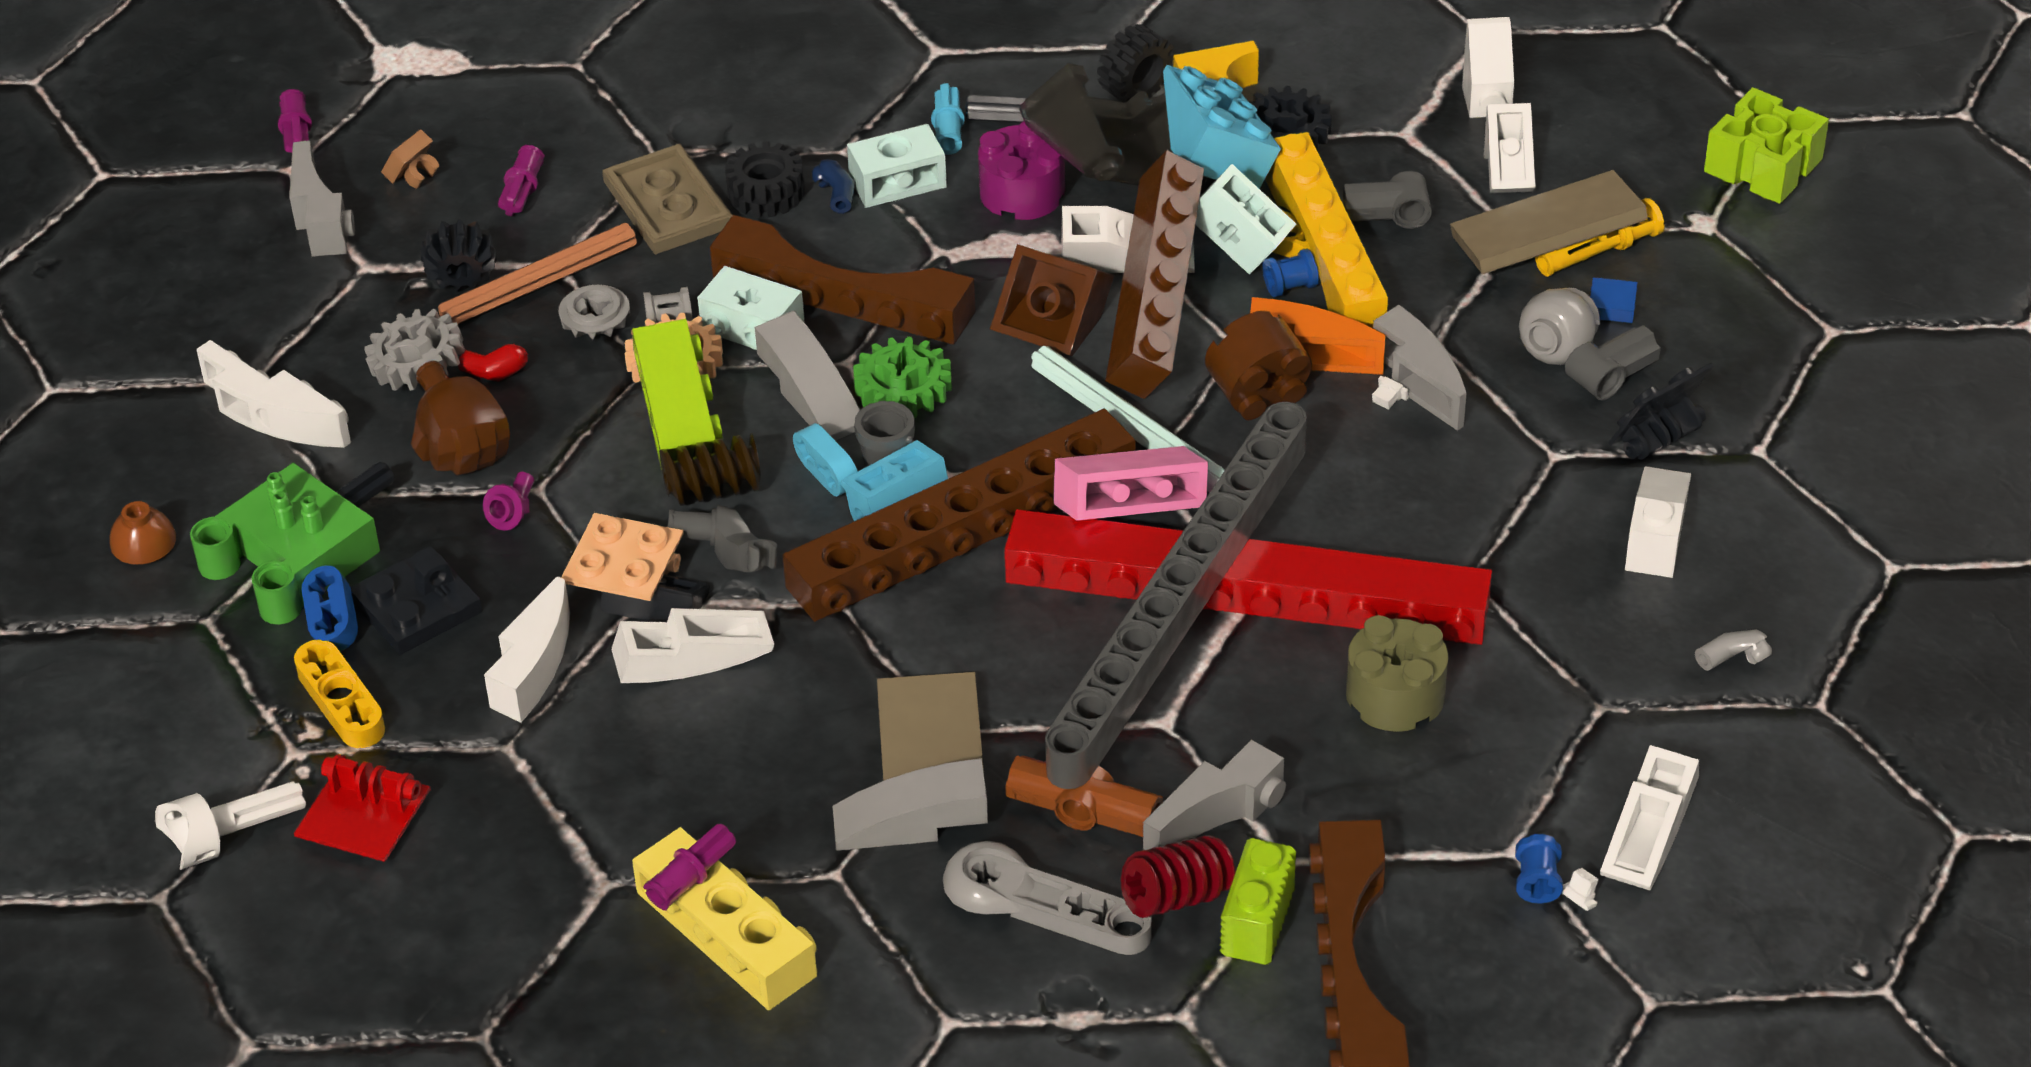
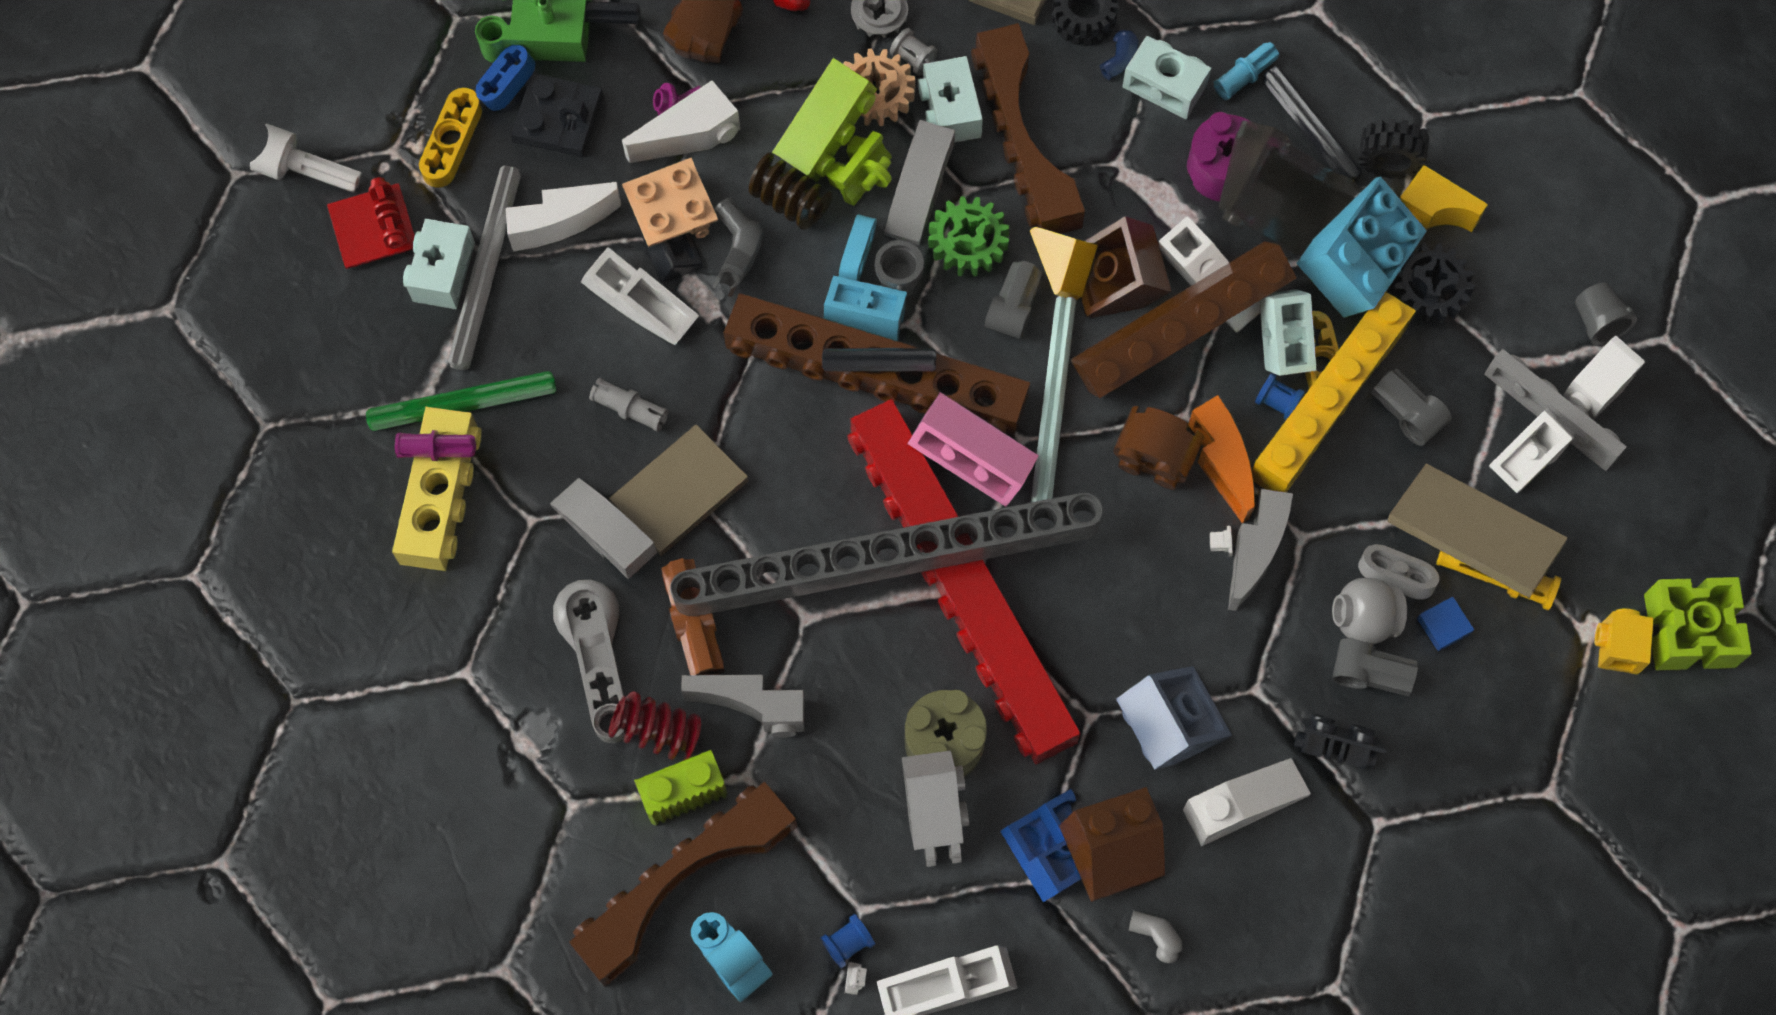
camera: 50 degrees right, 25 degrees up
(475, 774) = (439, 263): none -> light aqua brick
(518, 749) = (484, 269): none -> light grey axle
(554, 503) = (687, 127): none -> white slope
(663, 821) = (462, 400): none -> green axle
(750, 404) = (864, 170): none -> lime hips
(797, 719) = (628, 404): none -> light grey pin
(969, 488) = (879, 359): none -> black axle
(999, 321) = (1065, 261): none -> yellow slope
(1006, 391) = (1012, 308): none -> dark grey piece
(1425, 42) = (1604, 313): none -> dark grey piece
(1466, 120) = (1539, 395): none -> light grey plate
(1469, 707) = (934, 804): none -> light grey hinge
(1476, 956) = (730, 955): none -> medium azure piece
(1513, 299) = (1398, 569): none -> light grey plate
(1530, 515) = (1172, 716): none -> sand blue slope
(1579, 675) = (1042, 847): none -> blue slope
(1621, 612) = (1116, 843): none -> reddish brown slope
(1739, 200) = (1624, 641): none -> yellow brick

